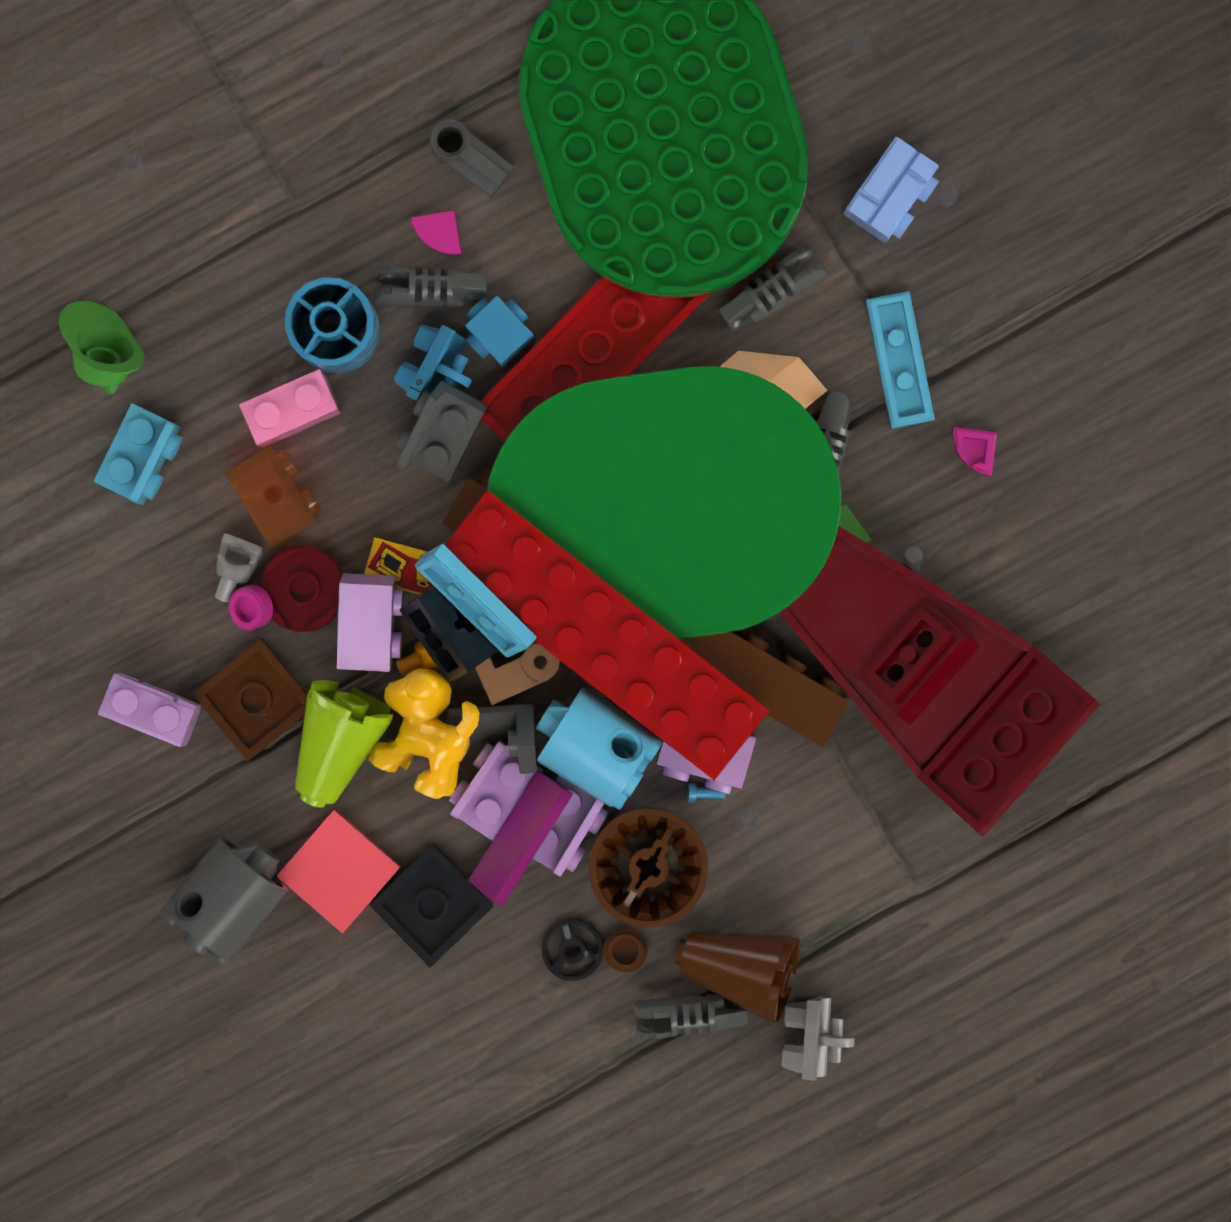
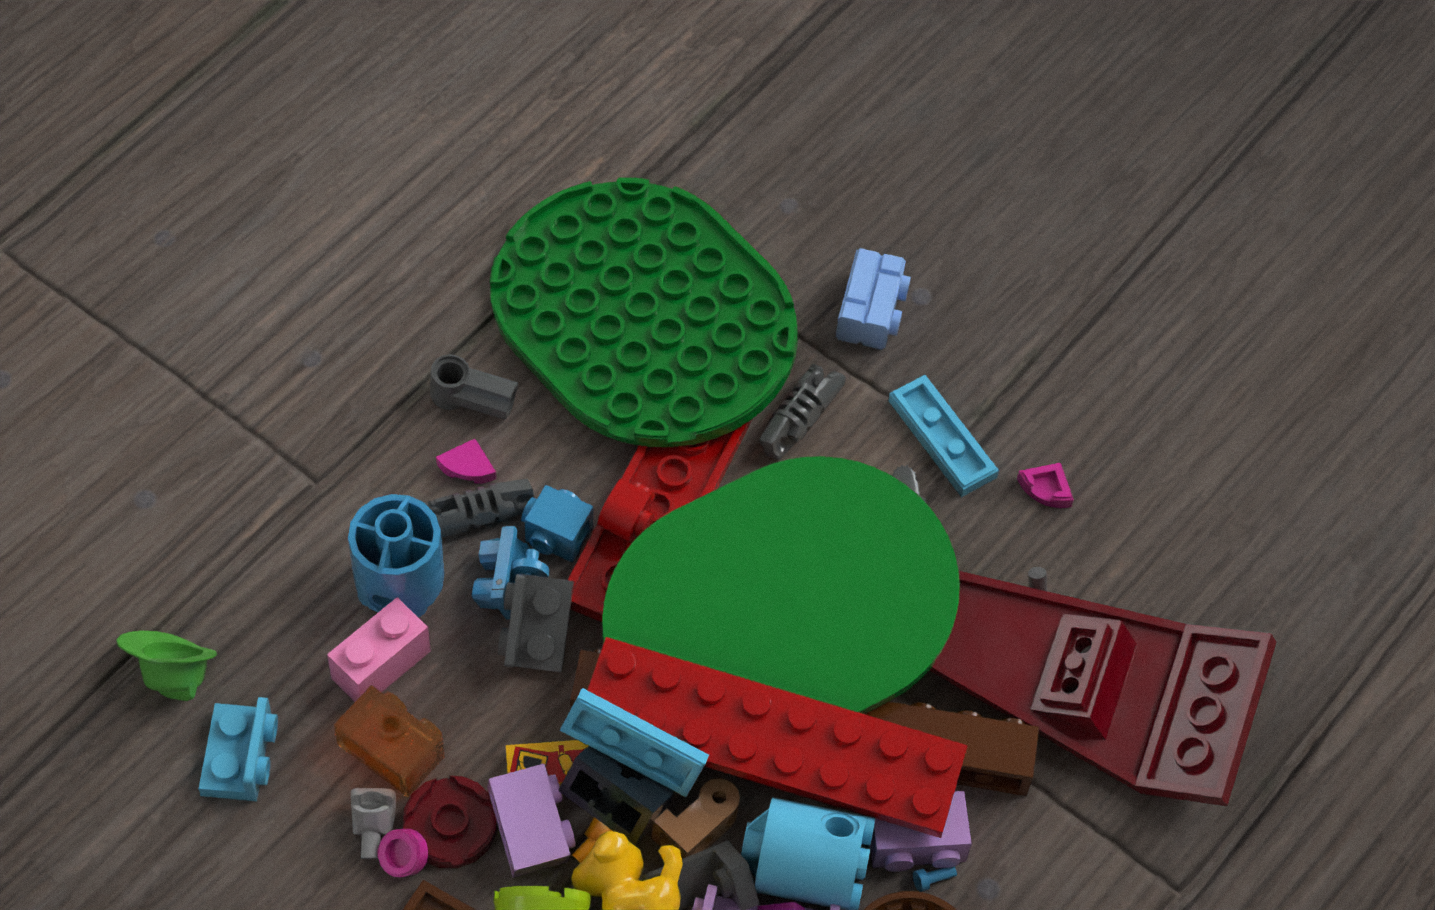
camera: 30 degrees left, 30 degrees down
(562, 354) = (627, 510): none -> red plate

